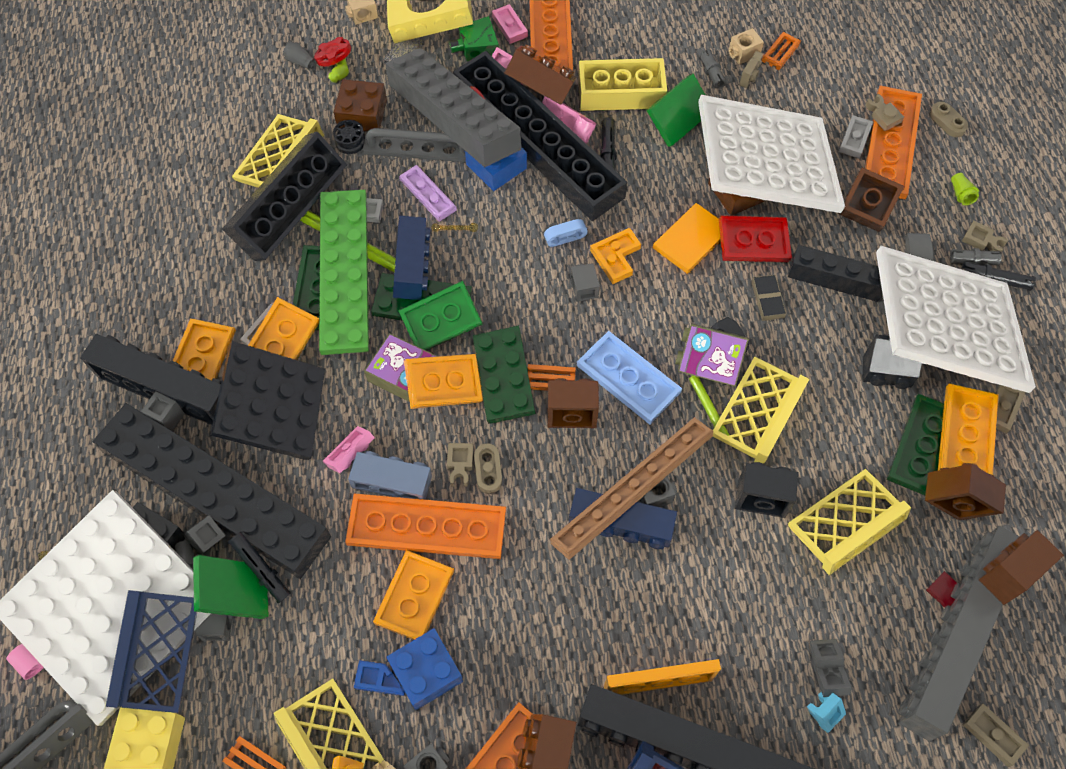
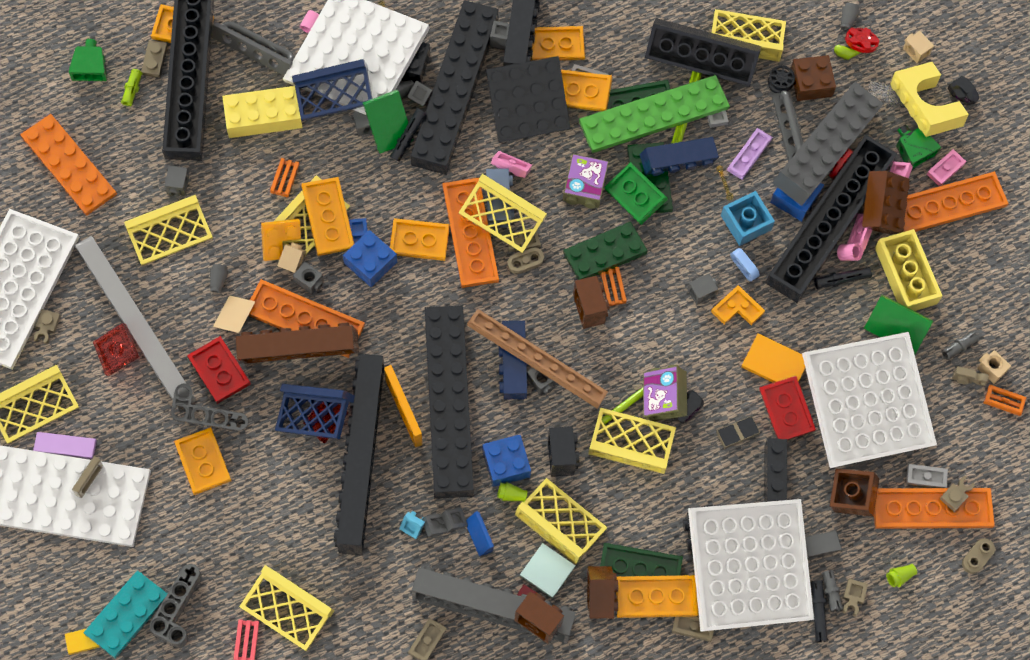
camera: 70 degrees right, 5 degrees up
(342, 713) = (327, 216): none -> light orange tile
(405, 456) = (511, 199): none -> light yellow fence
(443, 381) = (582, 209): light orange tile -> none
(512, 212) = (747, 218): none -> dark azure brick
(629, 377) = (630, 340): light blue plate -> none
(664, 616) = (448, 402): none -> black brick
(761, 564) = (506, 460): none -> blue brick
(802, 572) = (510, 492): none -> lime cone
(854, 625) = (479, 534): none -> blue slope
(912, 554) = (547, 570): none -> light aqua tile

